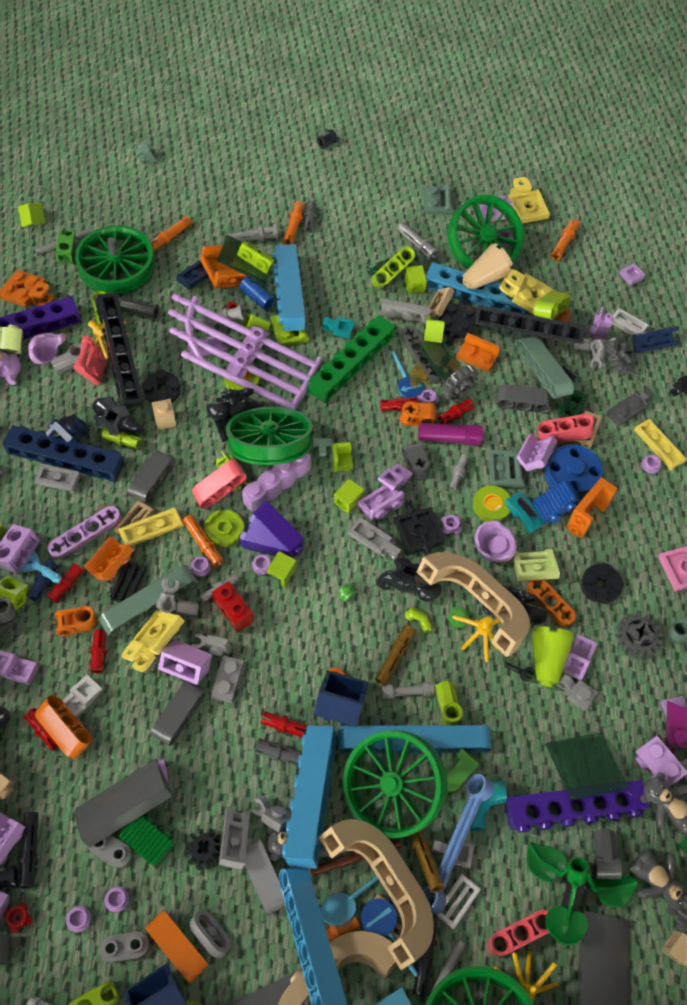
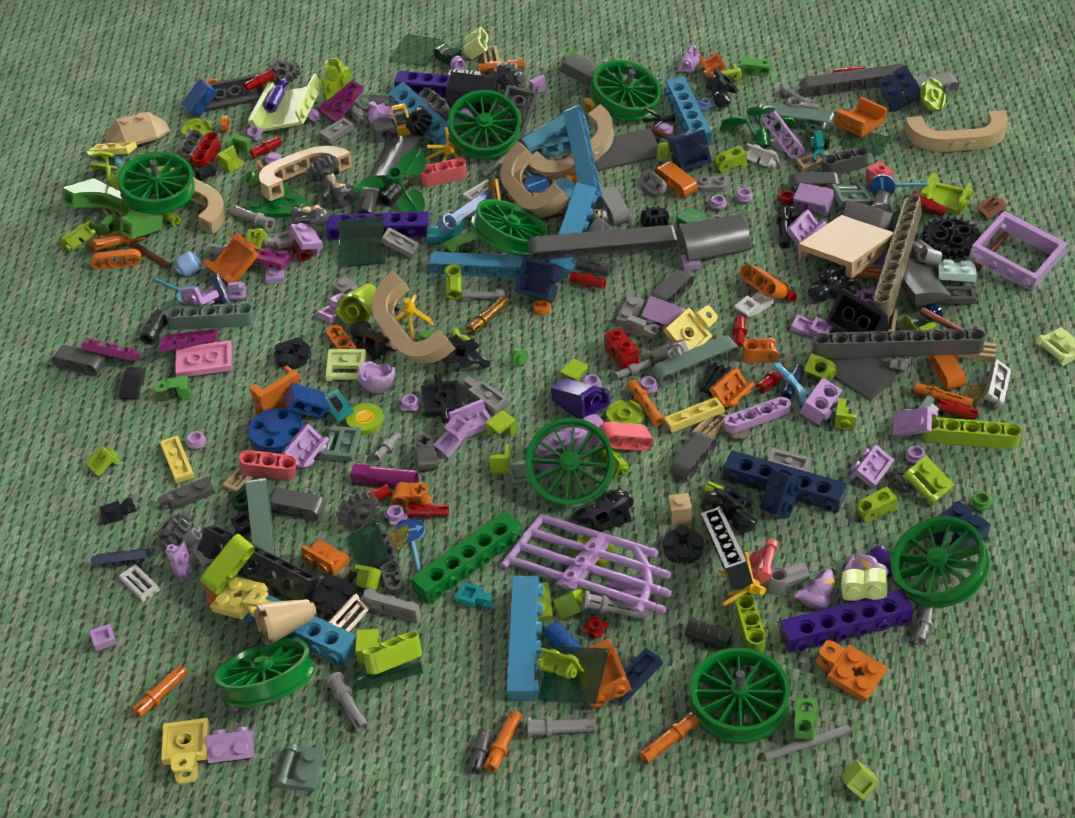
camera: 165 degrees left, 15 degrees down
(234, 839) = (632, 210): light grey plate -> none
(266, 767) = (602, 242): none -> dark grey beam
(536, 767) = (399, 242): none -> light grey plate
(648, 633) = (280, 314): dark grey gear -> none

